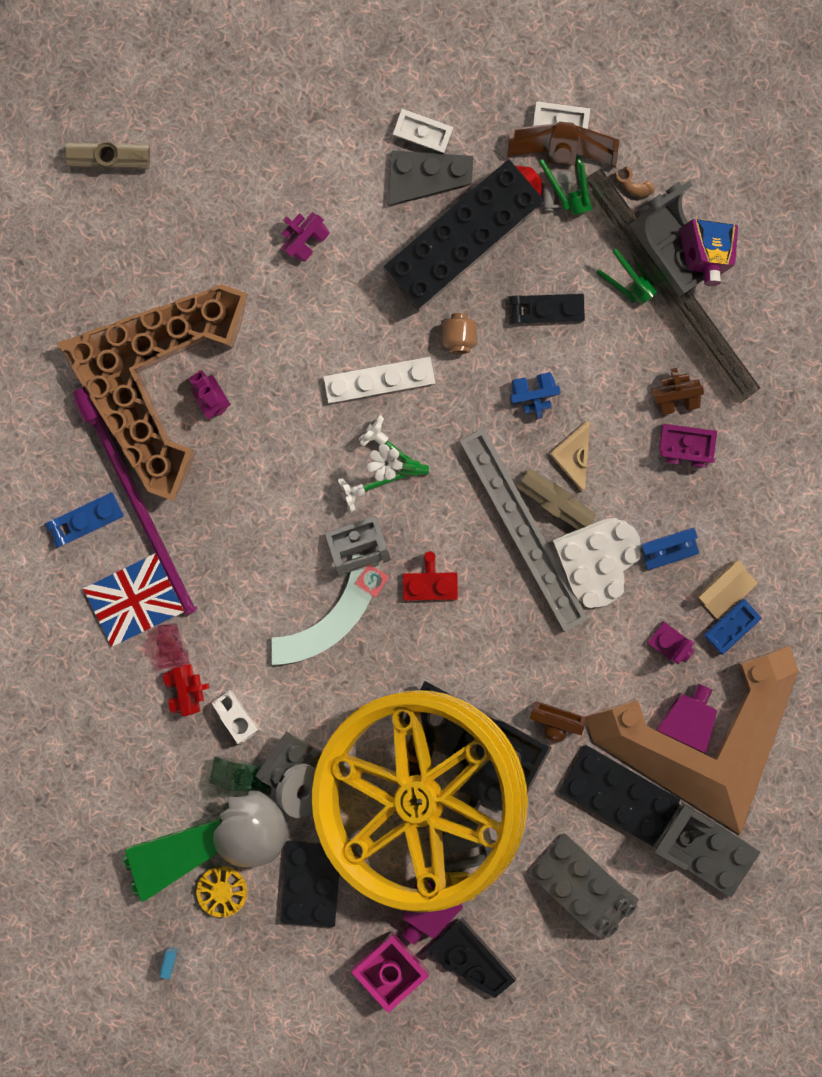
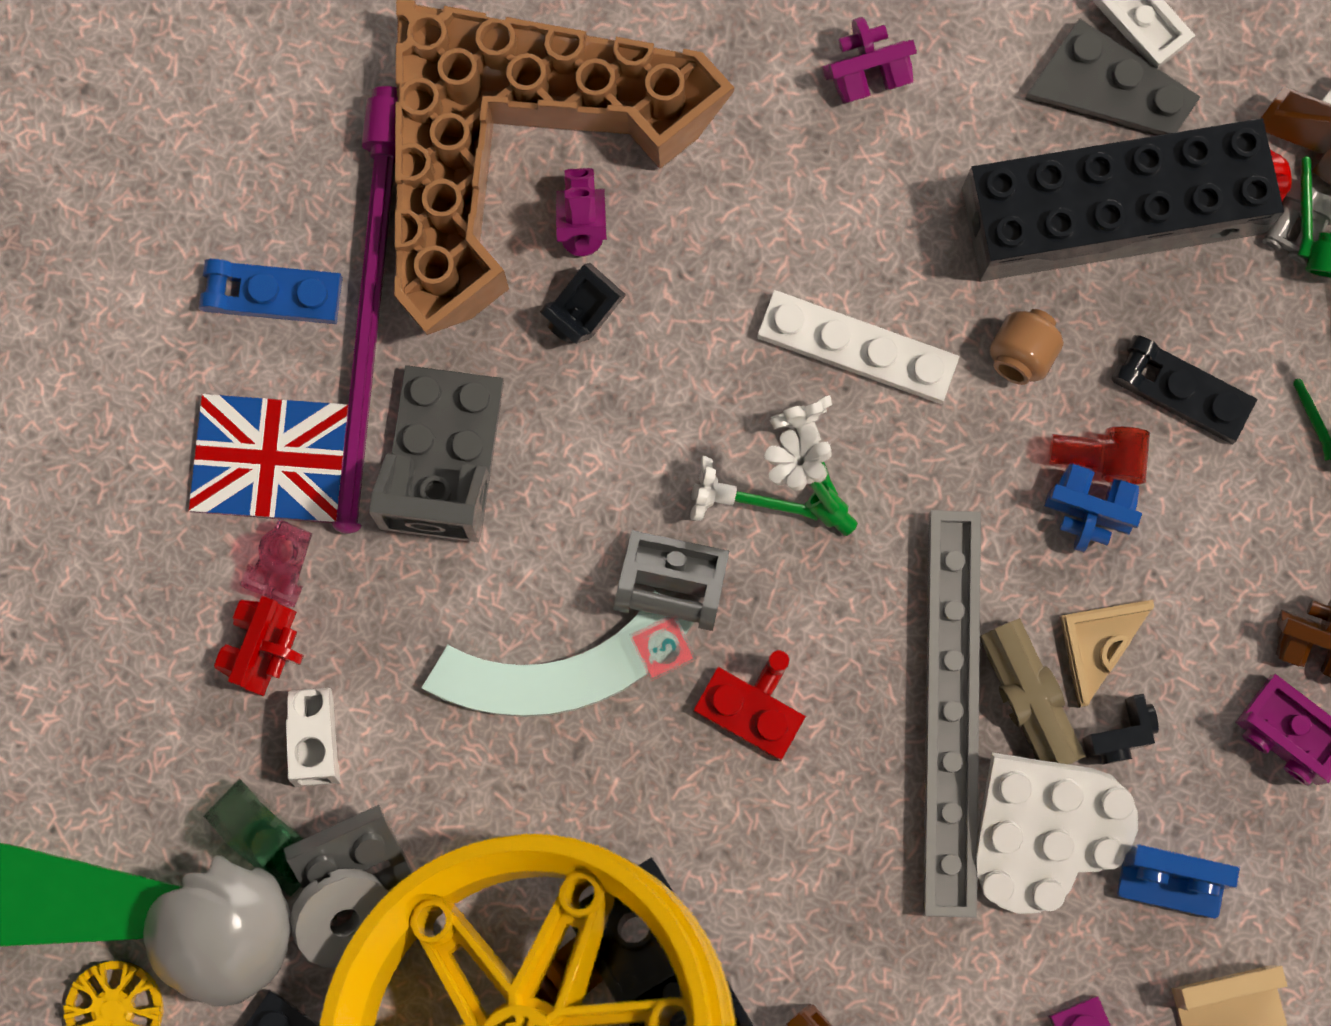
camera: 25 degrees right, 10 degrees down
(213, 550) = (439, 455): none -> dark grey bracket
(237, 439) = (582, 305): none -> black bracket
(530, 361) = (1116, 454): none -> clear red pin
(608, 500) = (1117, 744): none -> black bracket

